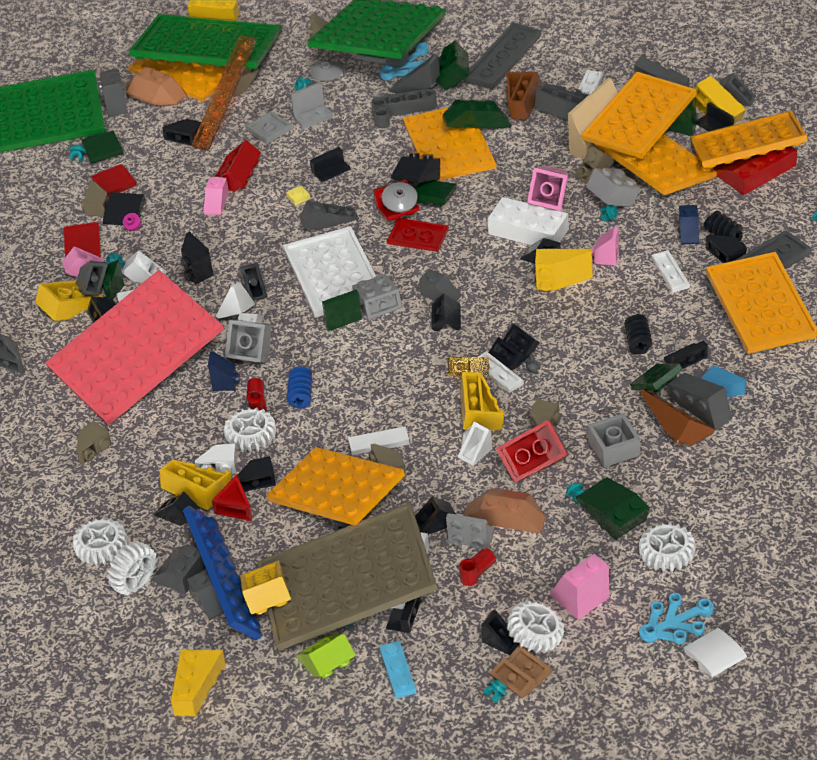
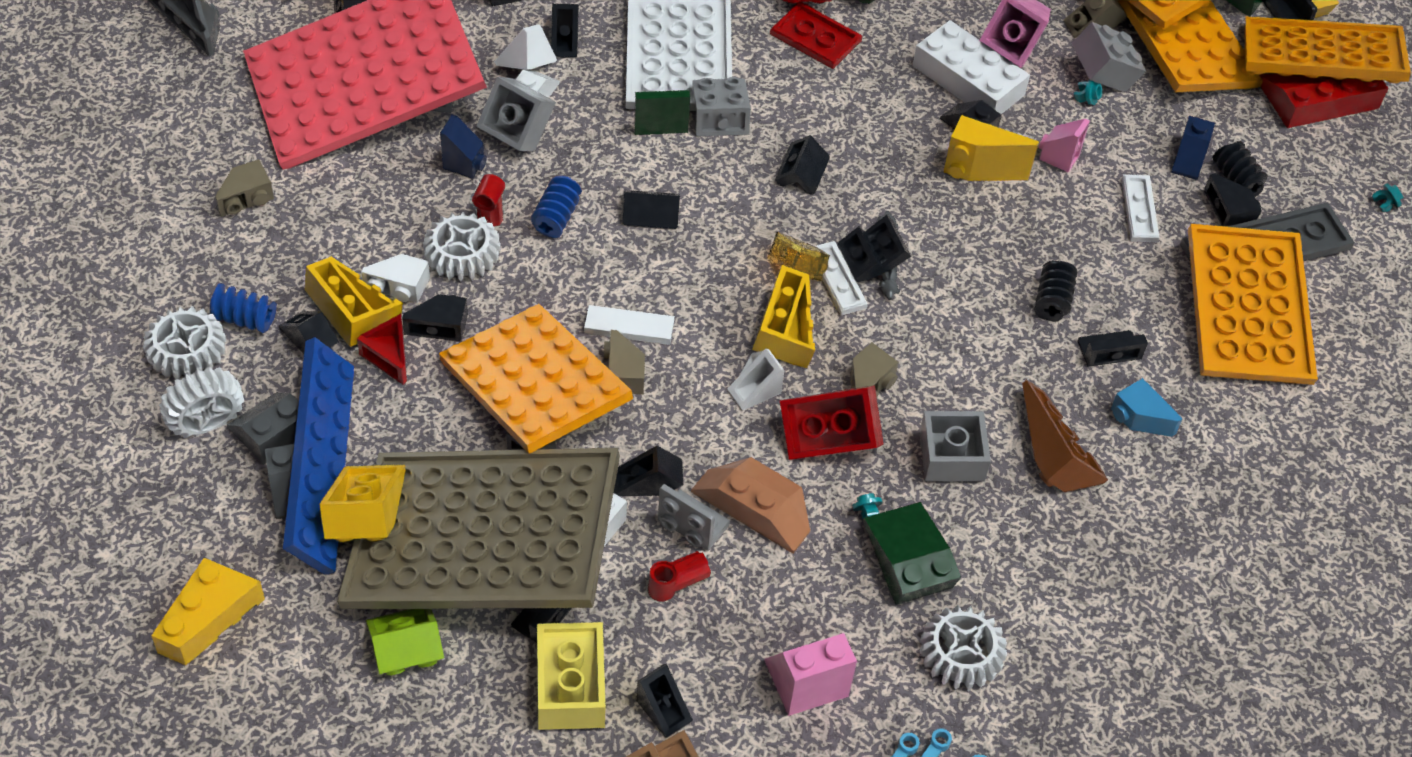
camera: 10 degrees right, 10 degrees up
(127, 510) = (242, 310): none -> blue piece
(360, 370) = (651, 209): none -> black panel
(397, 669) = (496, 700): medium azure plate -> none
(435, 284) = (805, 118): dark grey slope -> none
(438, 639) = (570, 676): none -> light yellow slope
(535, 626) = (713, 728): white gear -> none
(656, 377) = (1055, 367): dark green tile -> none
(702, 399) = (1106, 425): dark grey wedge -> none

